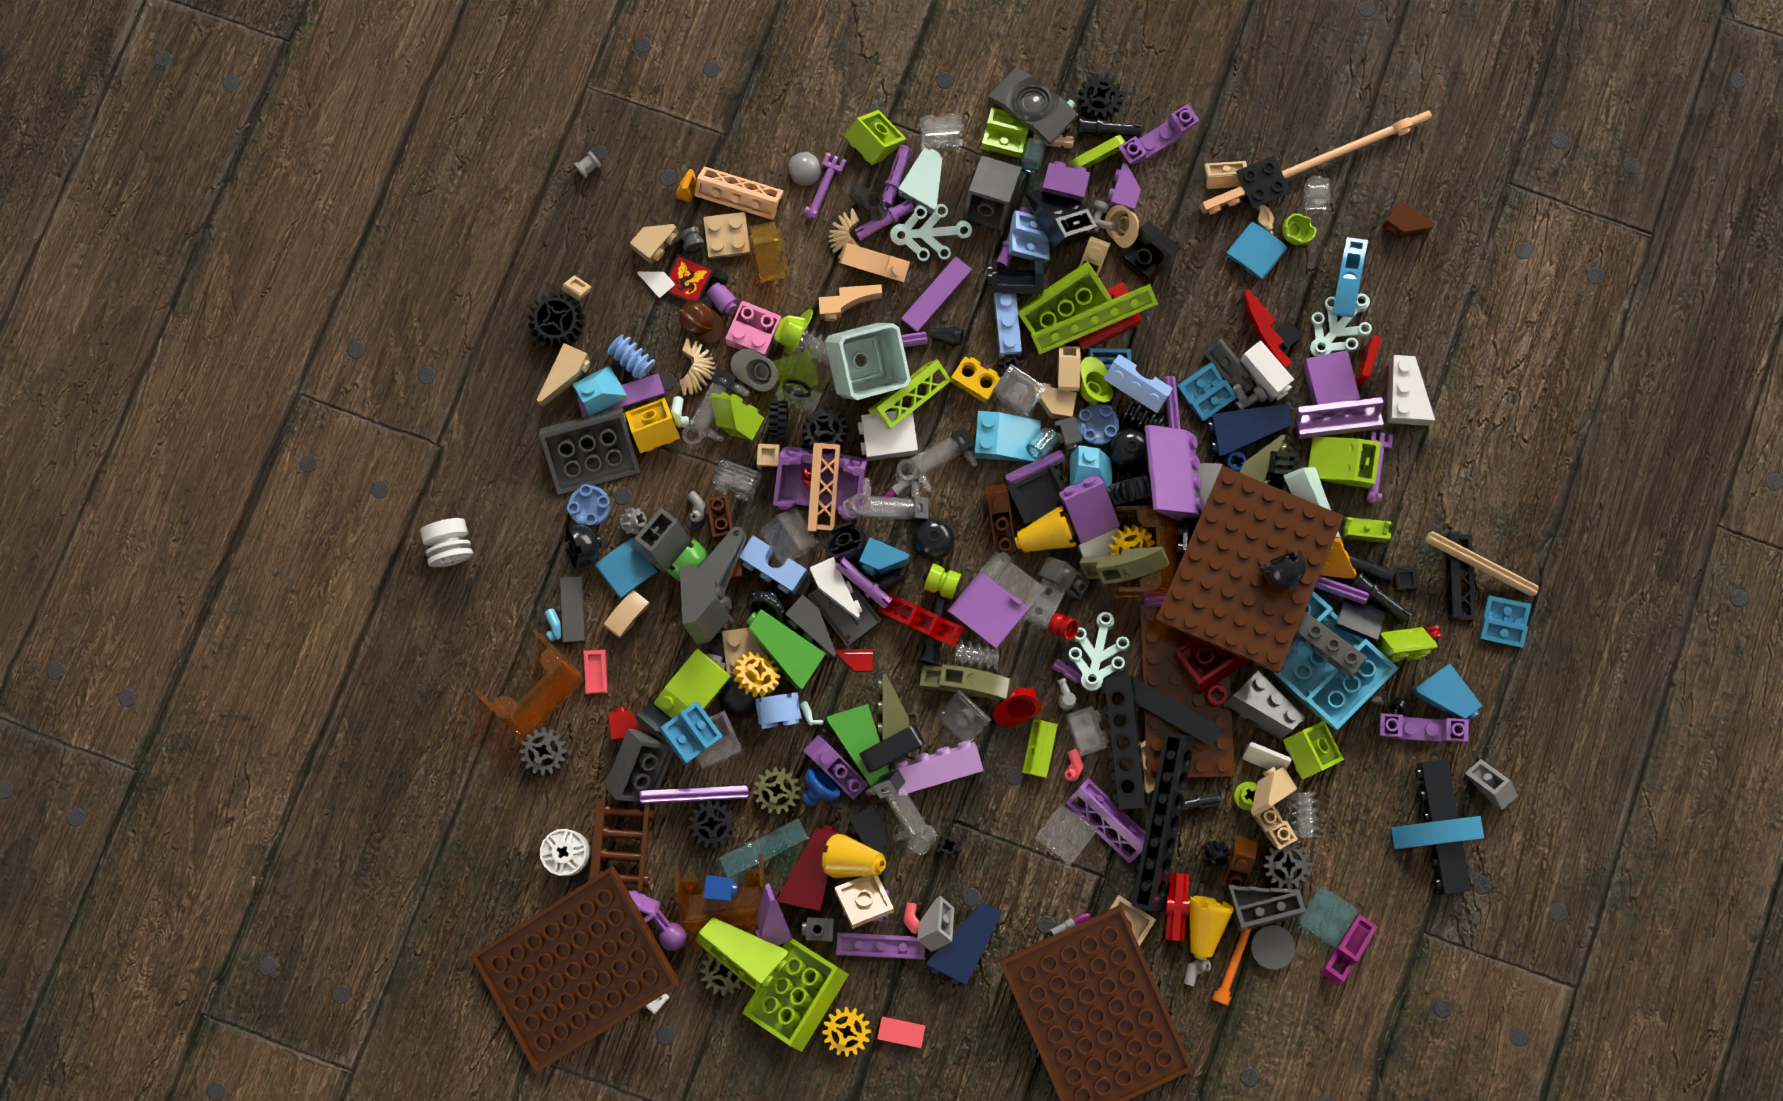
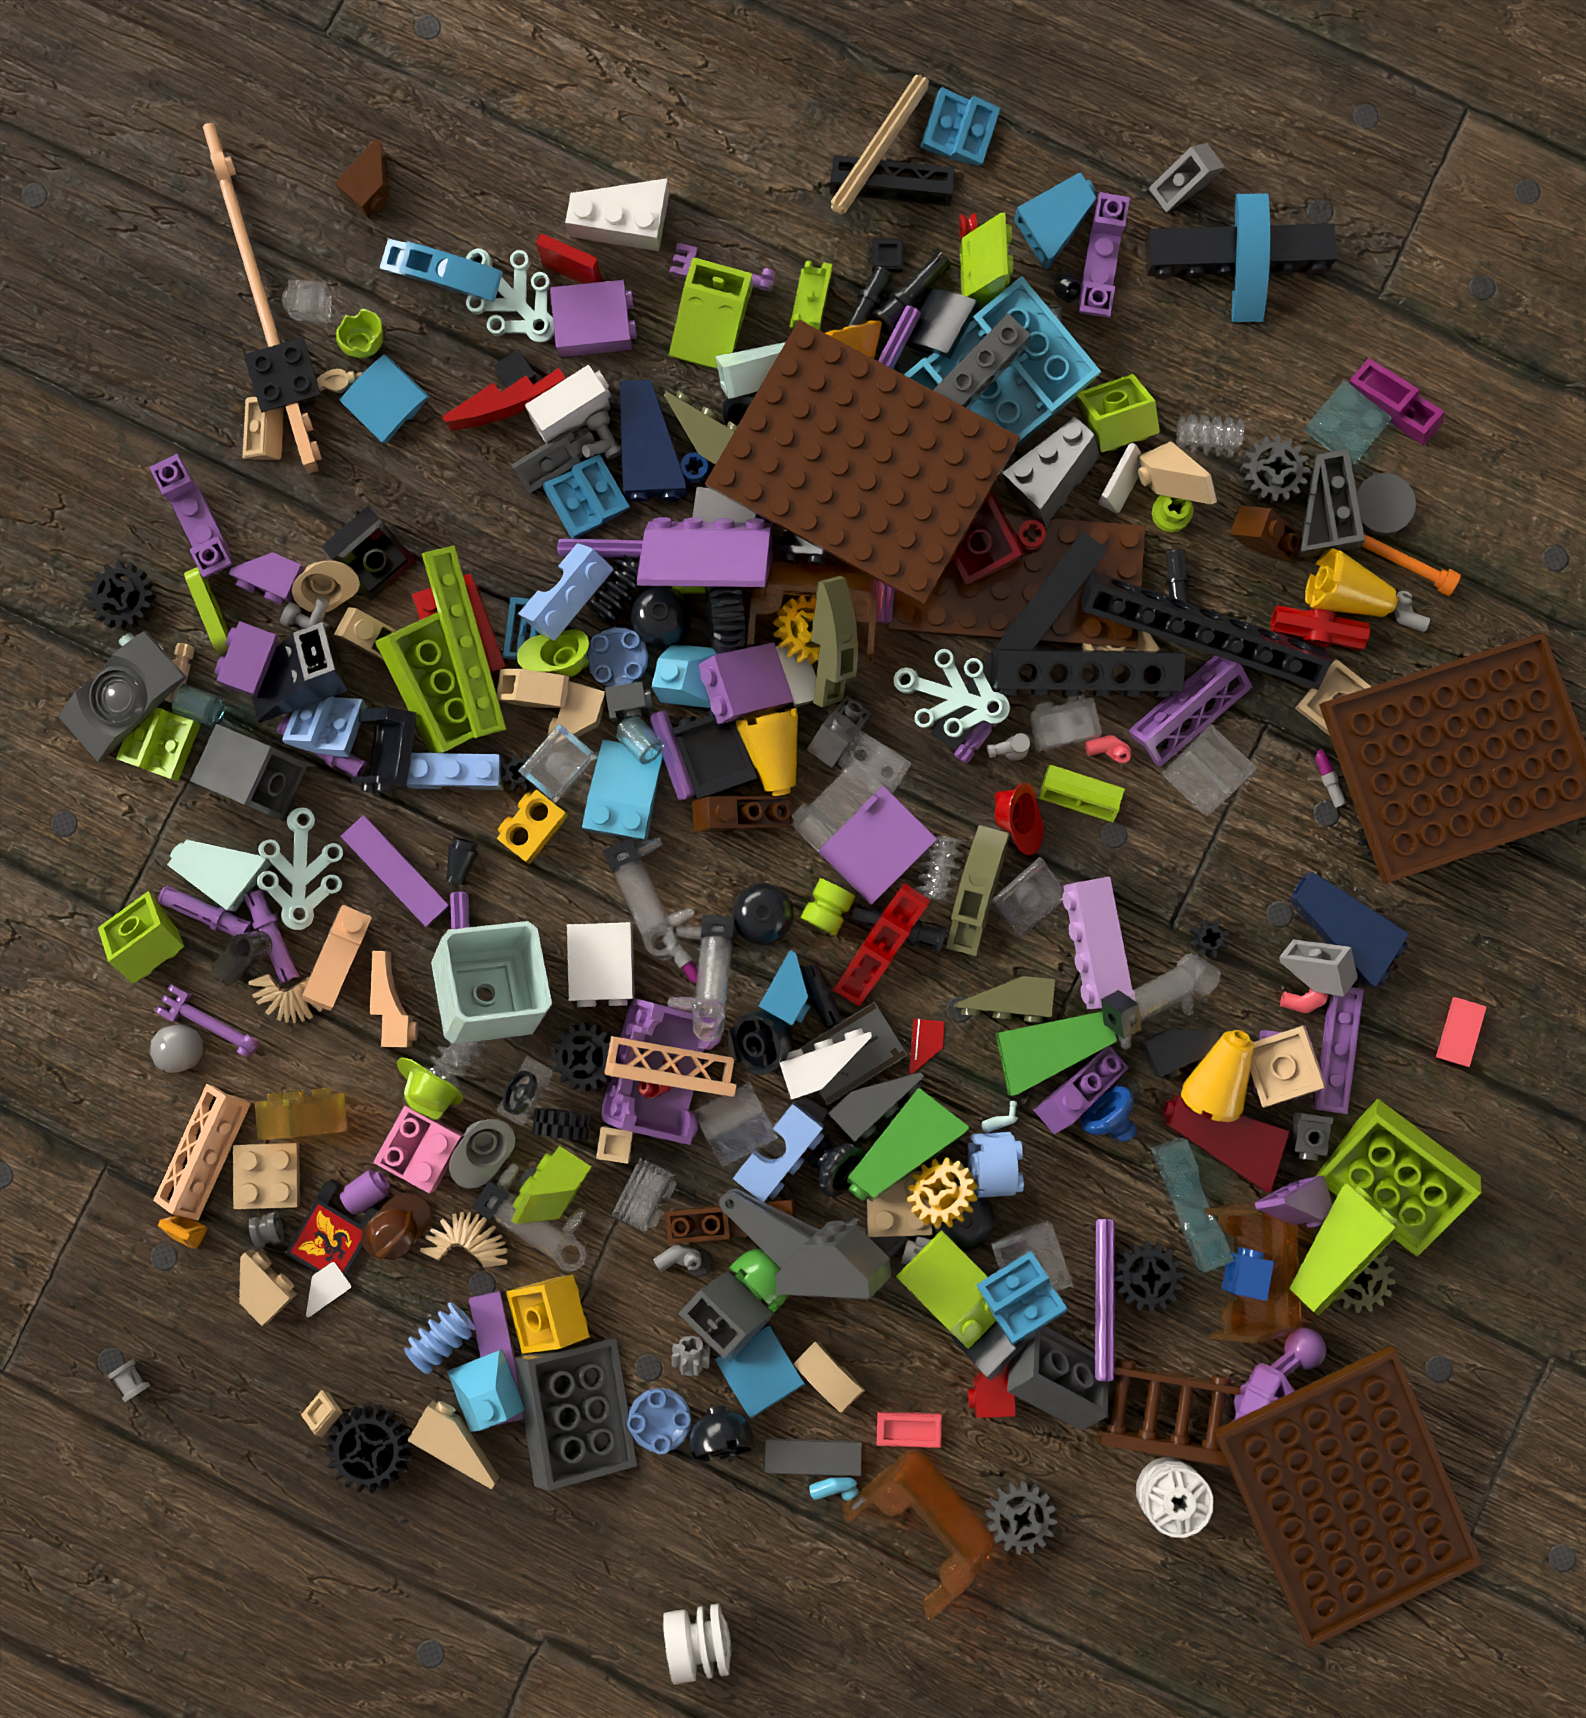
camera: 85 degrees left, 5 degrees up
(676, 412) = (533, 1275): light aqua arm -> none
(780, 780) = (1104, 1191): olive gear -> none
(797, 367) = (486, 1088): clear neon green piece -> none
(842, 1040) = (1450, 1121): yellow gear -> none
(870, 588) = (830, 1013): medium lavender pin -> none
(892, 748) = (1069, 1004): black beam -> none
(897, 395) = (521, 911): lime fence -> none
(941, 131) = (143, 836): clear slope -> none
(1063, 626) = (911, 741): red wheel -> none
(1099, 127) = (167, 603): black pin -> none
(1215, 853) = (1252, 564): black gear -> none
(1275, 828) = (1231, 474): tan slope -> none
(1285, 570) = (875, 408): black cylinder -> none
(1290, 463) = (716, 397): black tile -> none
(1340, 419) = (647, 314): medium lavender fence -> none

